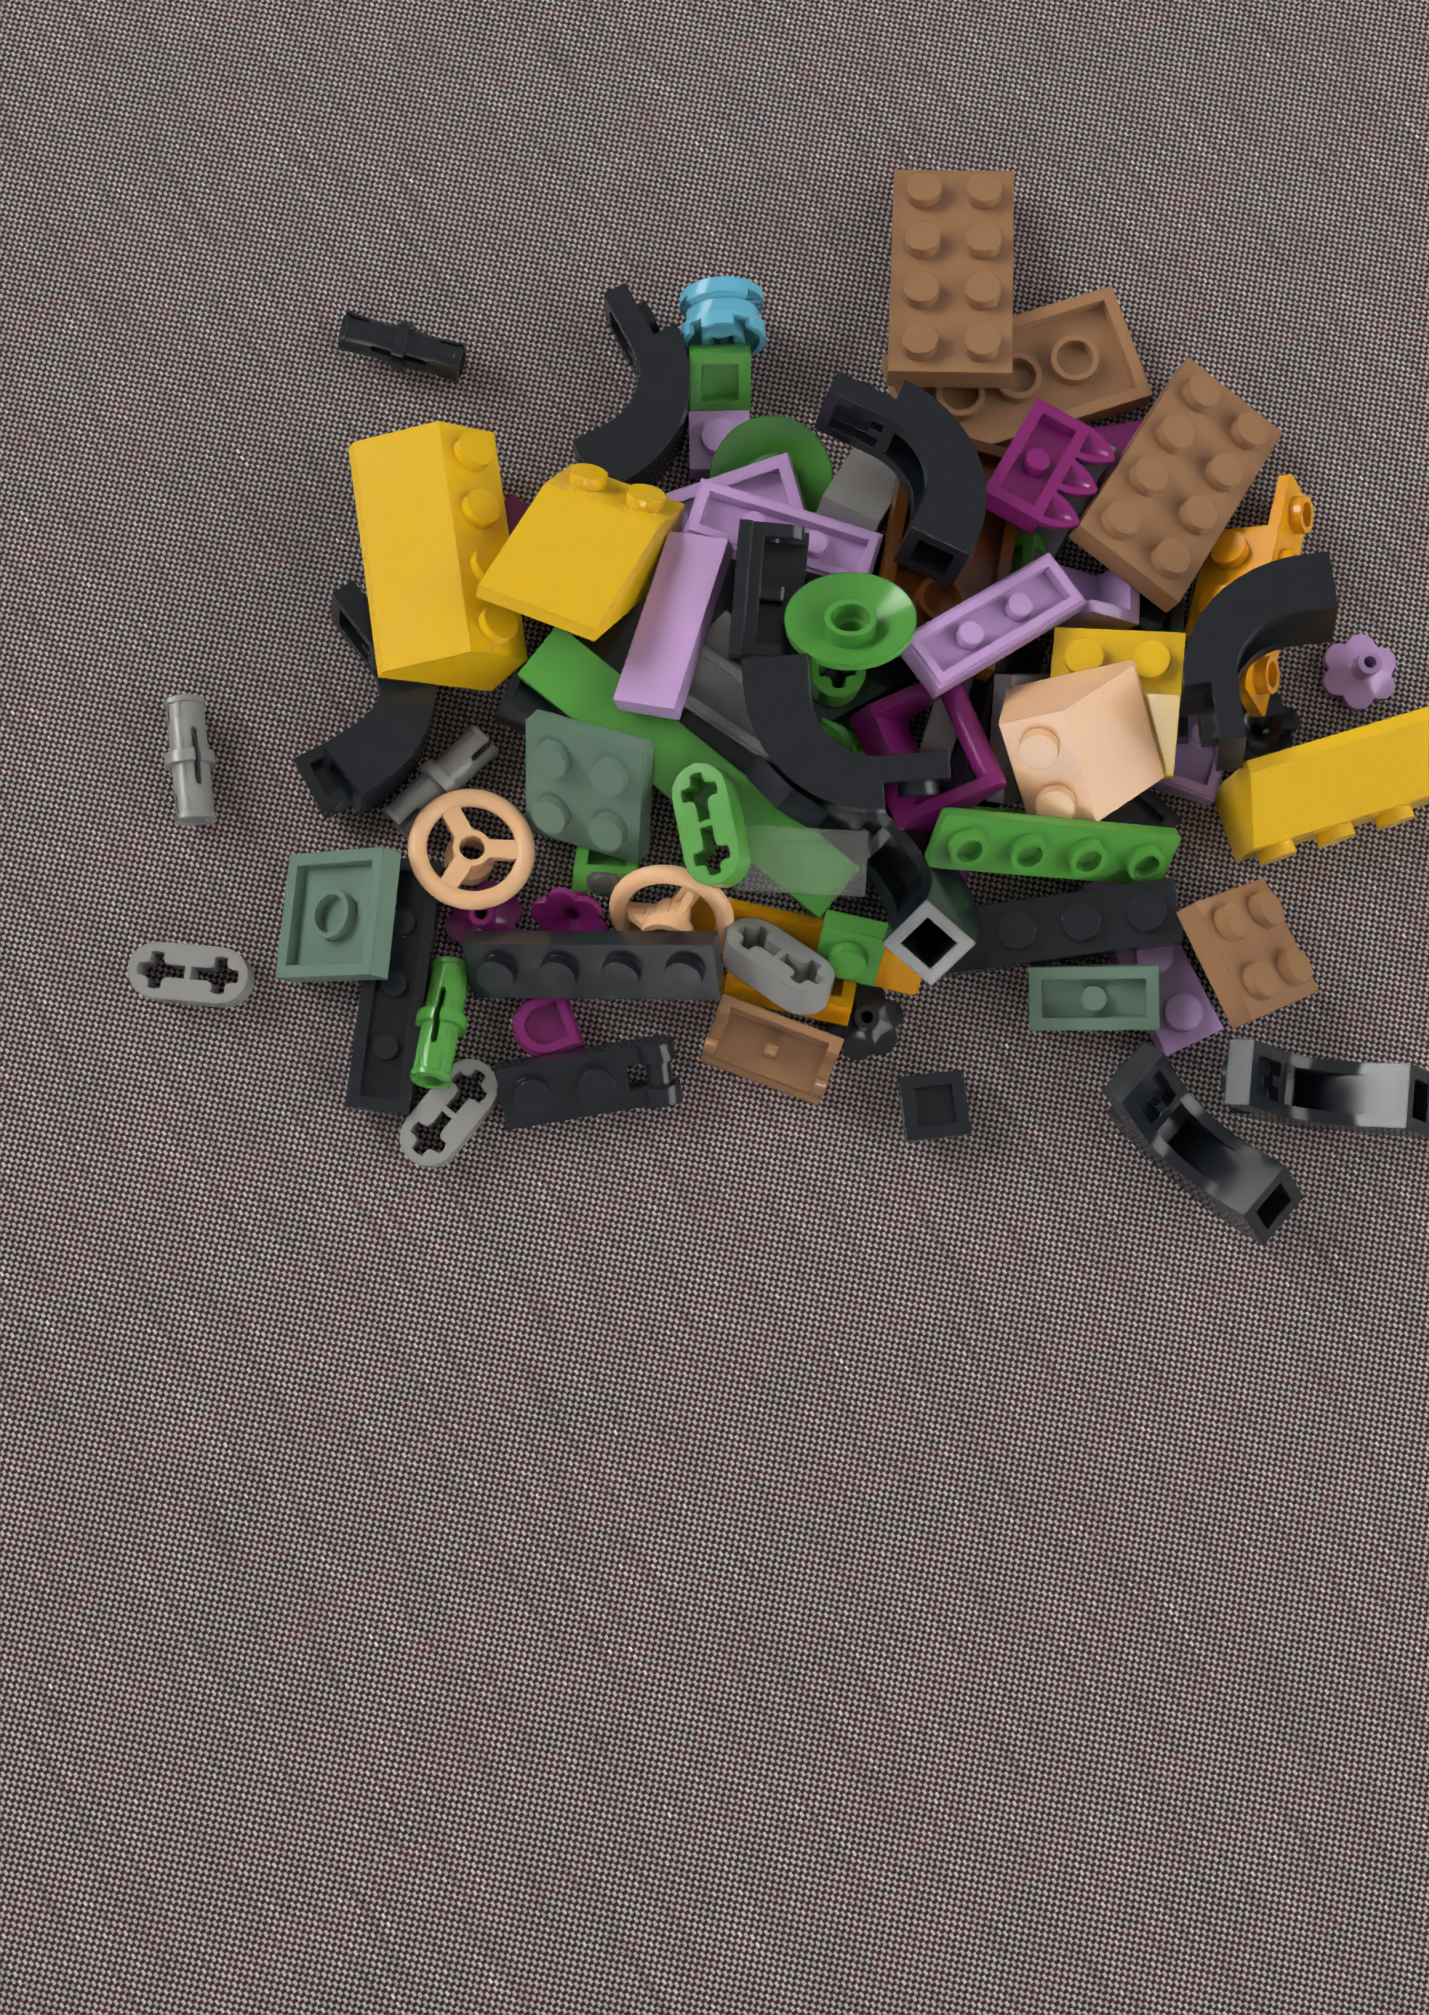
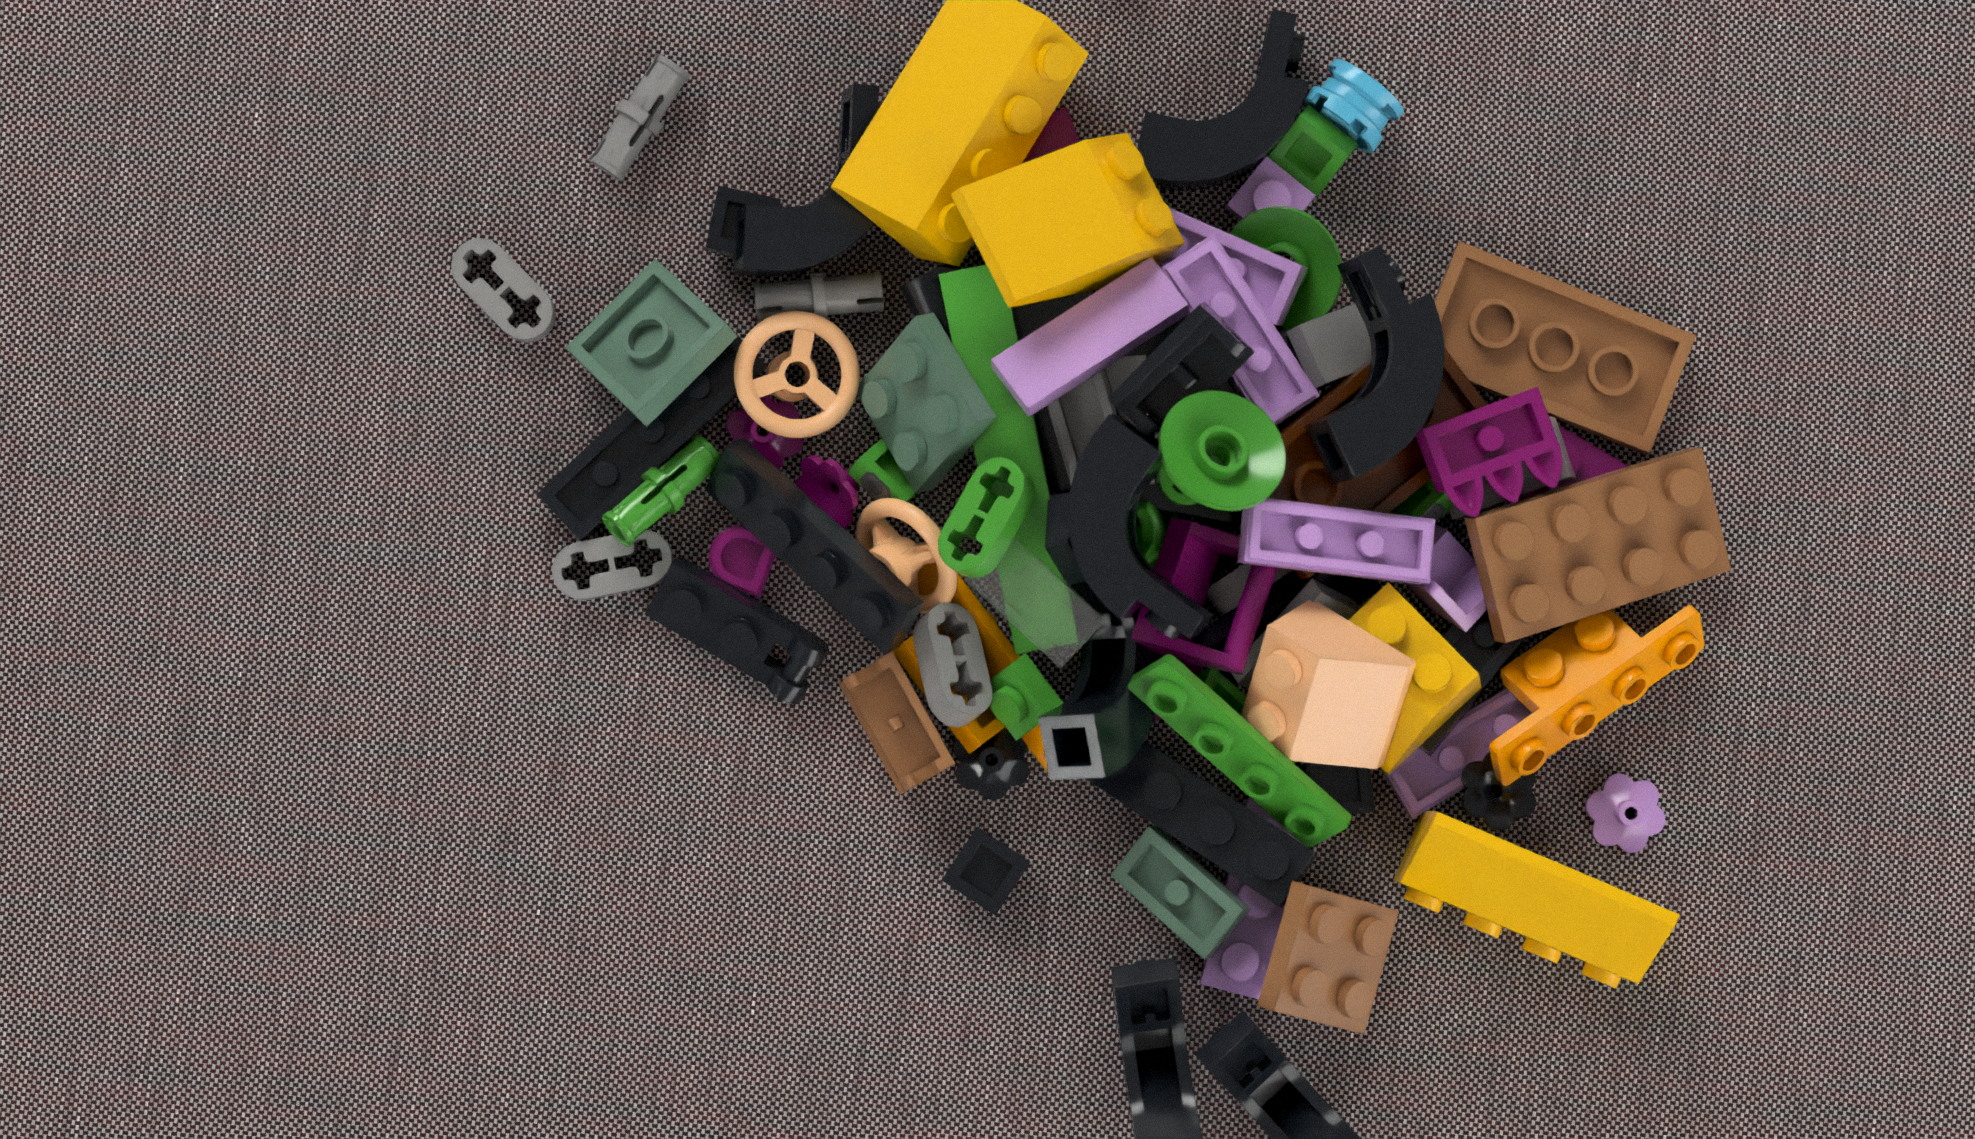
camera: 40 degrees right, 5 degrees up
(951, 279) = (1570, 221): medium nougat plate -> none
(1254, 615) = (1526, 703): black arch -> none

